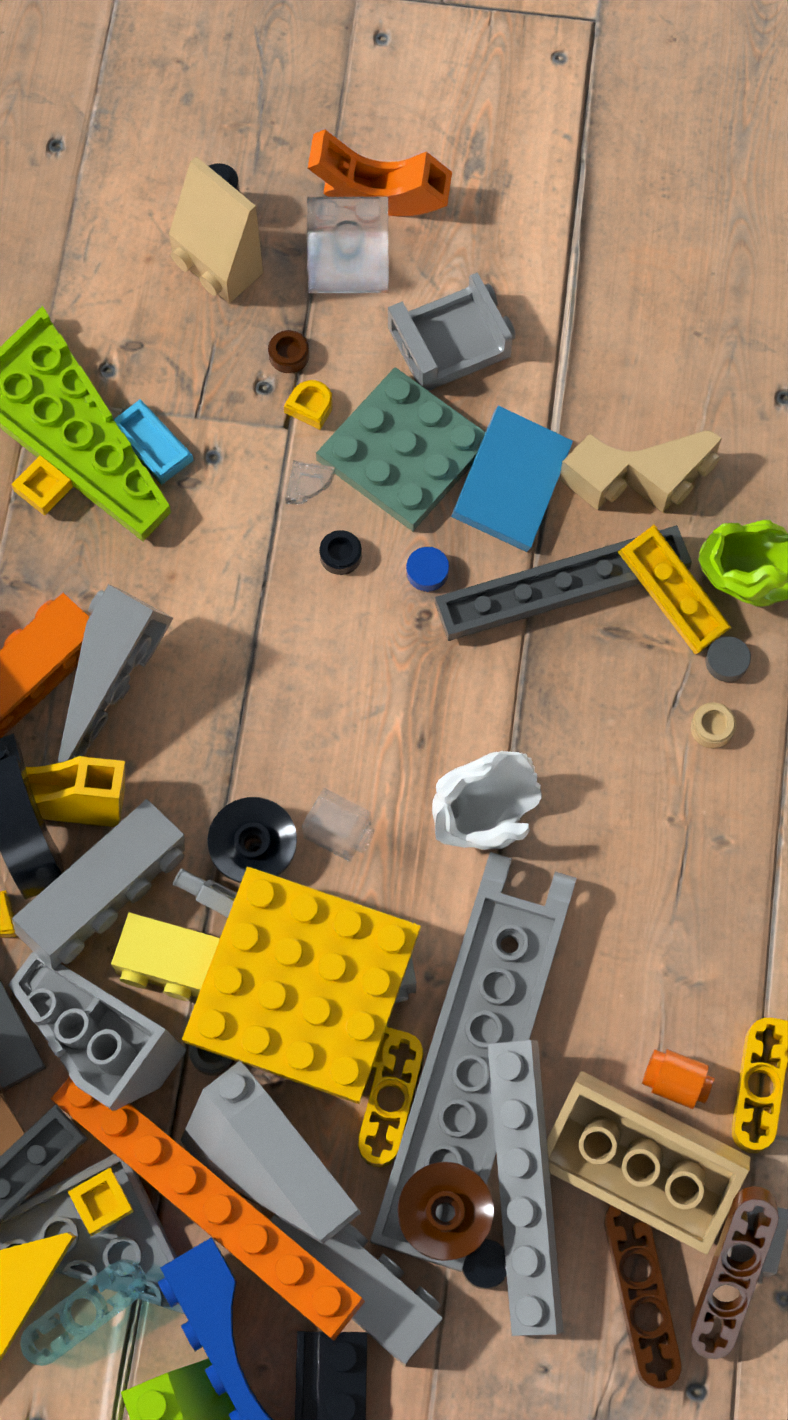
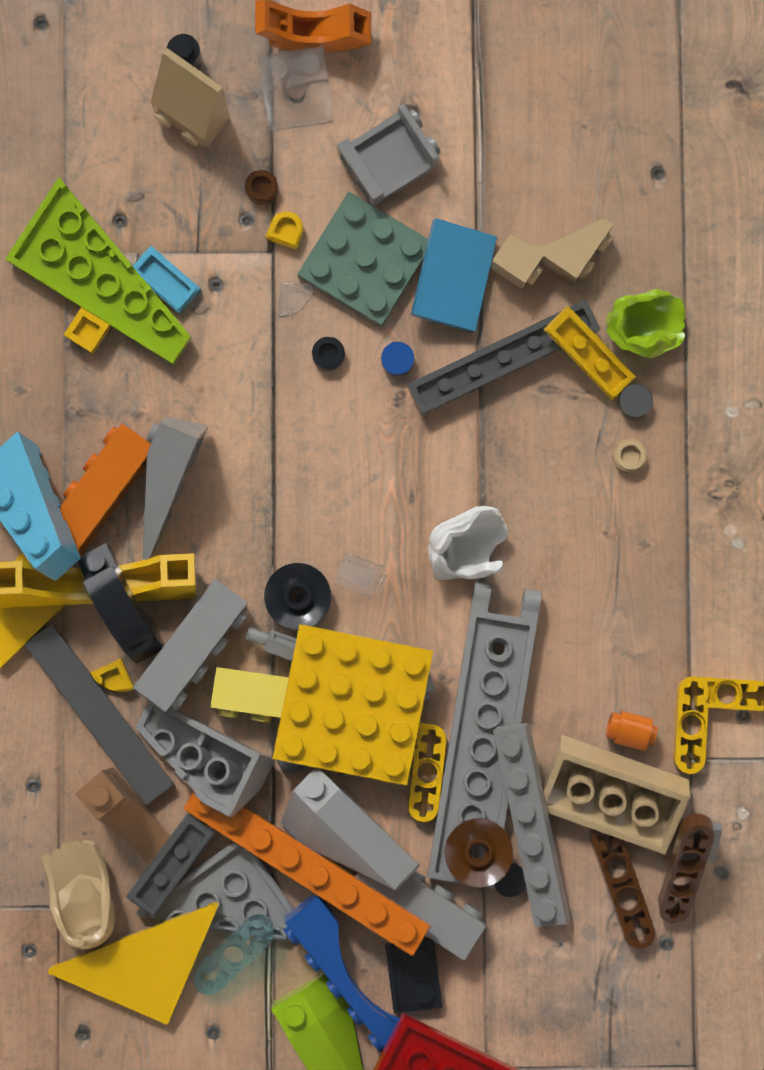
camera: 15 degrees left, 15 degrees up
(101, 1201) = (233, 878): yellow plate -> none

